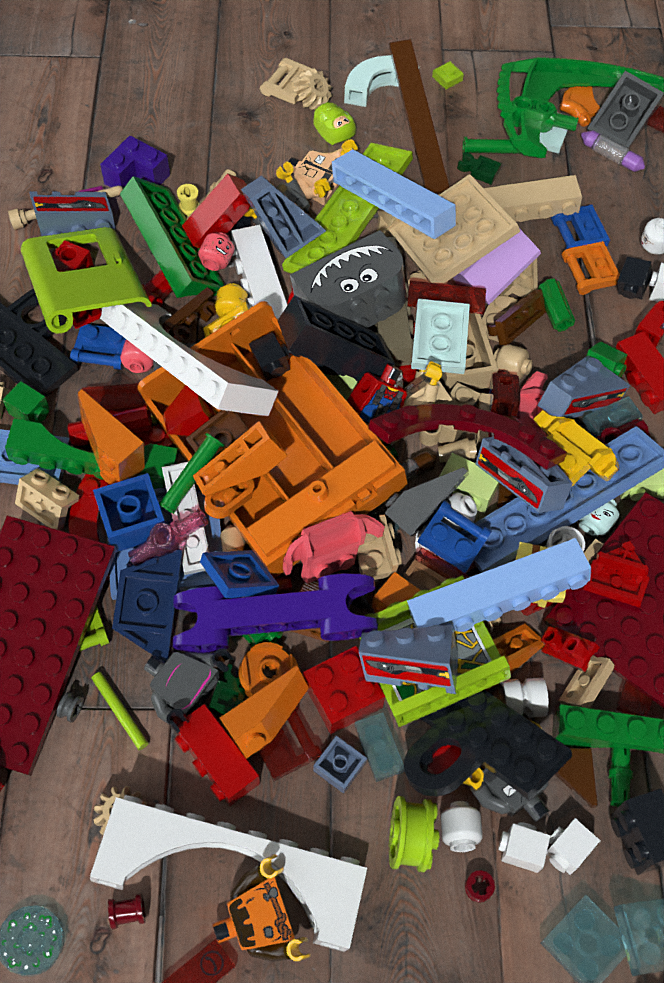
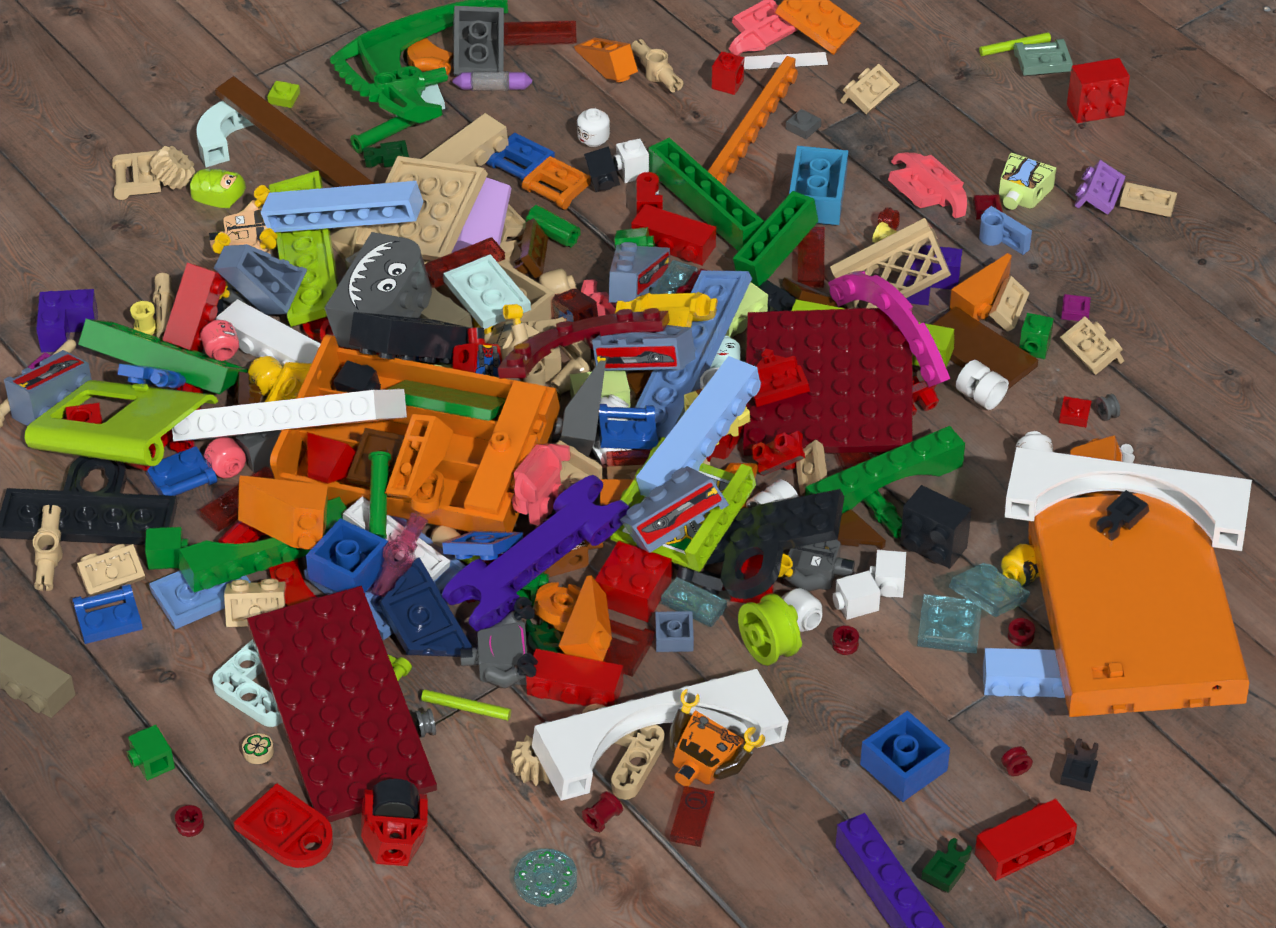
camera: 35 degrees left, 15 degrees down
(134, 251) = (151, 376): none -> blue plate
(213, 863) = (636, 747): none -> tan beam
(317, 419) = (451, 400): none -> green tile
(406, 734) = (710, 581): none -> black plate

